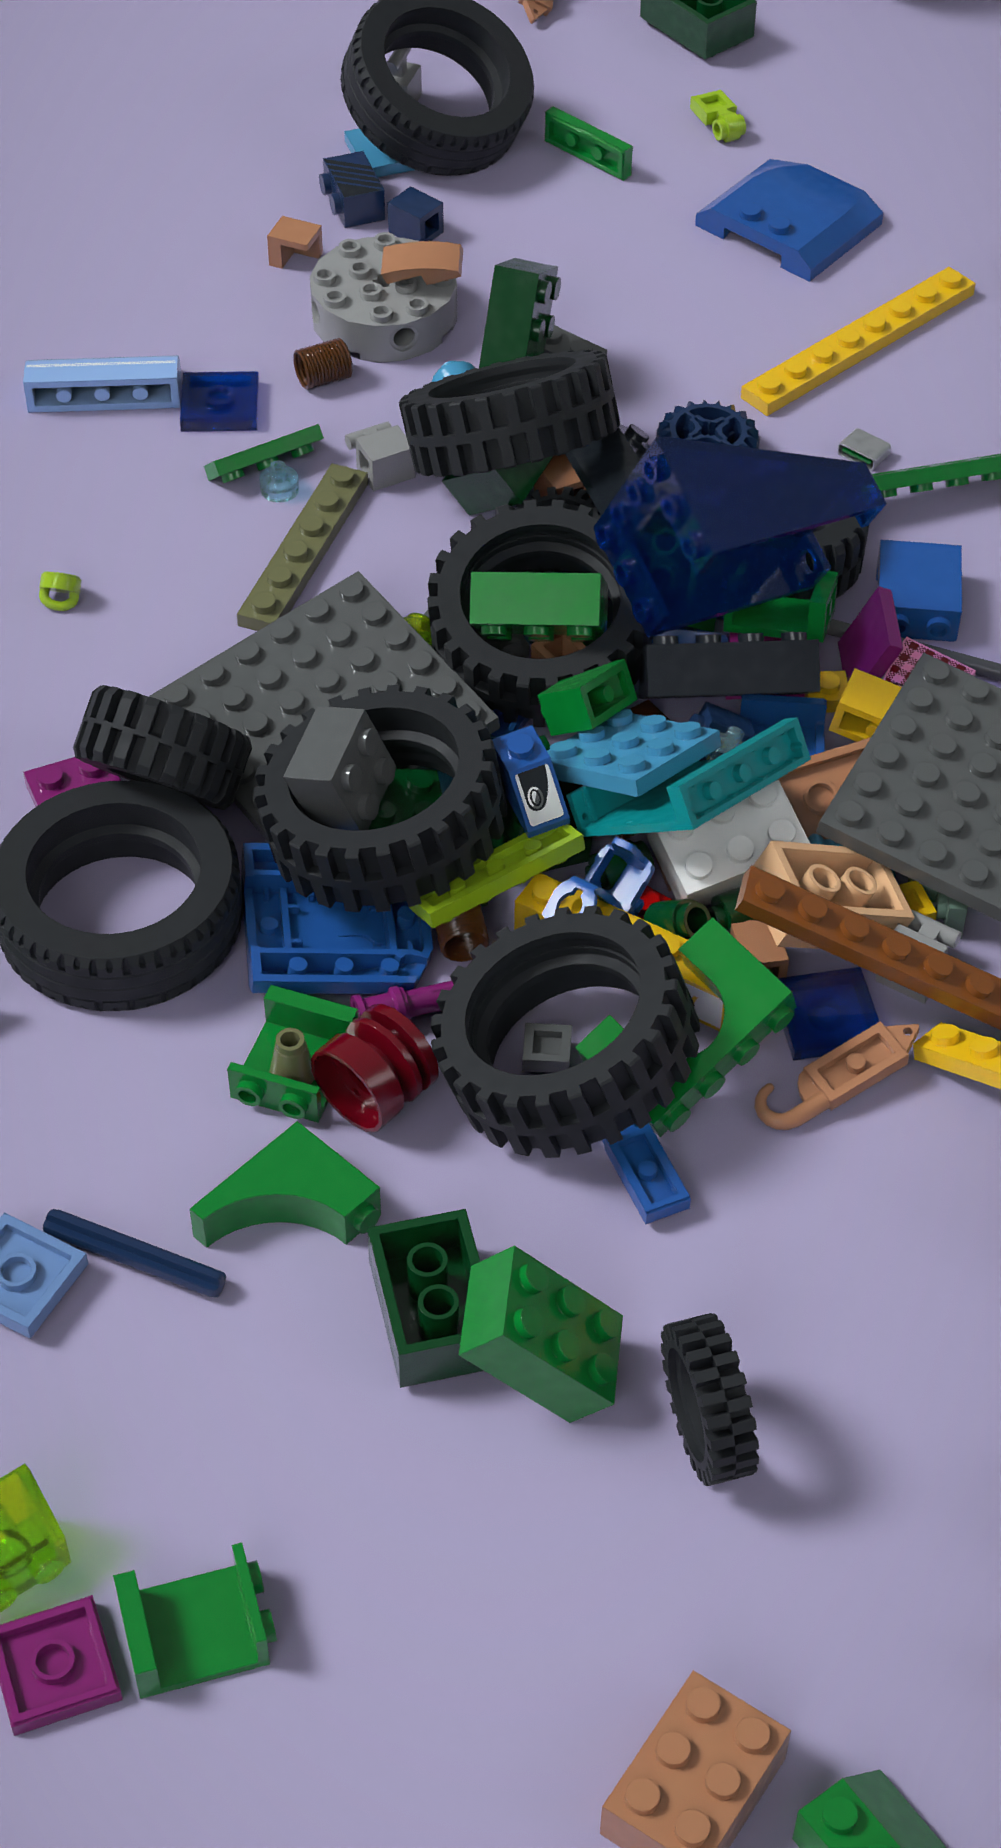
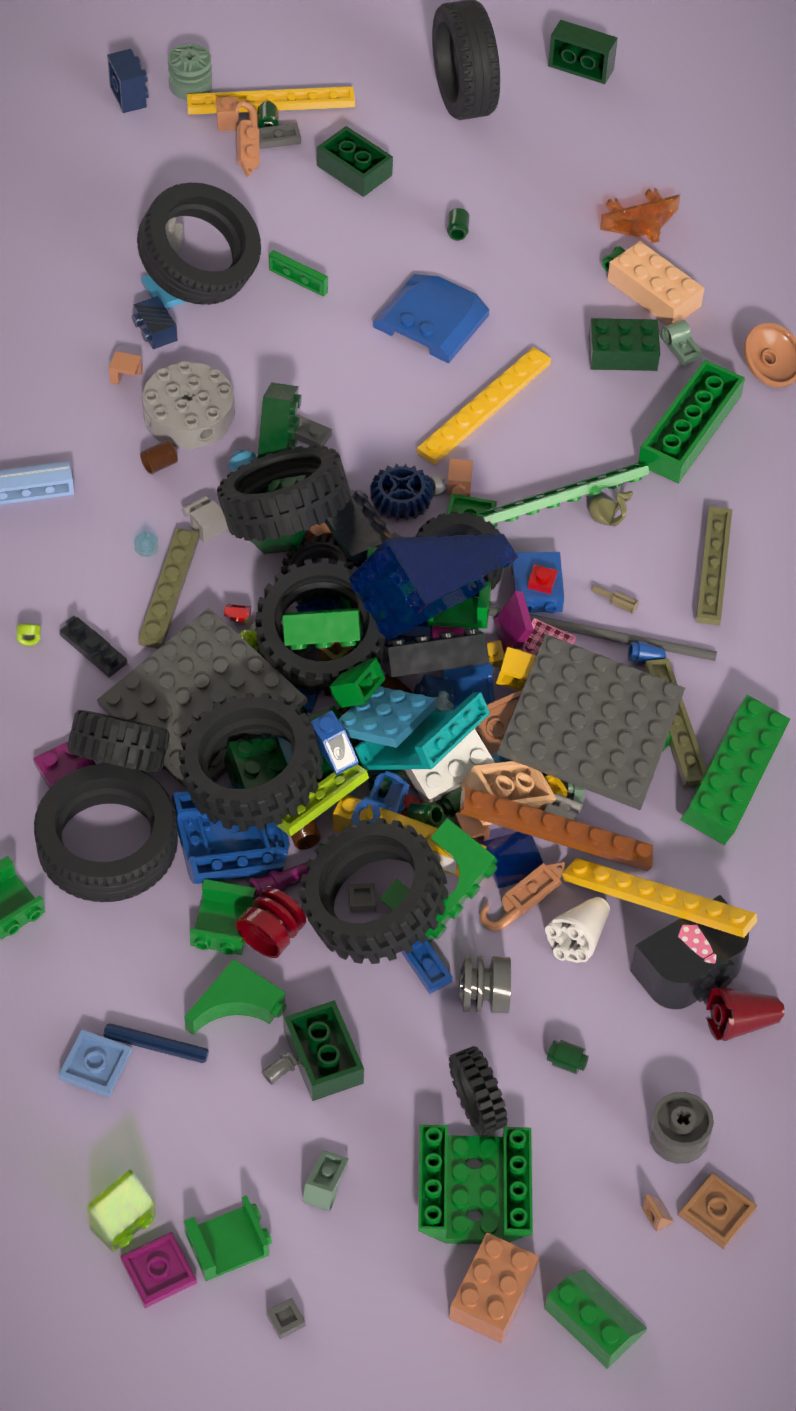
camera: 10 degrees left, 5 degrees up
(161, 619) = (92, 646): none -> black plate
(219, 401) = (98, 488): clear blue tile -> none
(263, 455) = (134, 525): green plate -> none
(277, 1790) = (285, 1318): none -> dark grey plate
(292, 1056) = (223, 922): olive cone -> none
(340, 769) = (228, 751): dark grey brick -> none
(349, 1320) = (279, 1067): none -> dark grey pin
(392, 1536) = (324, 1180): none -> sand green plate
(406, 590) = (237, 613): none -> red plate
(415, 216) = (197, 340): dark blue brick -> none
(430, 259) = (212, 383): nougat slope -> none
(541, 1334) = (386, 1066): green brick -> none
(638, 1581) = (496, 1189): none -> green slope
(720, 112) = (376, 238): lime plate -> none
(749, 1214) = (486, 984): none -> dark grey wheel
(769, 437) = (438, 485): none -> light grey hinge
(806, 428) = (459, 477): none -> nougat brick
(848, 99) = (458, 224): none -> dark green brick
(864, 448) = (495, 484): flat silver piece -> none
(889, 1361) = (567, 1056): none -> dark green brick
(927, 580) = (542, 579): none -> red plate
(930, 1142) = (578, 930): none -> white cone

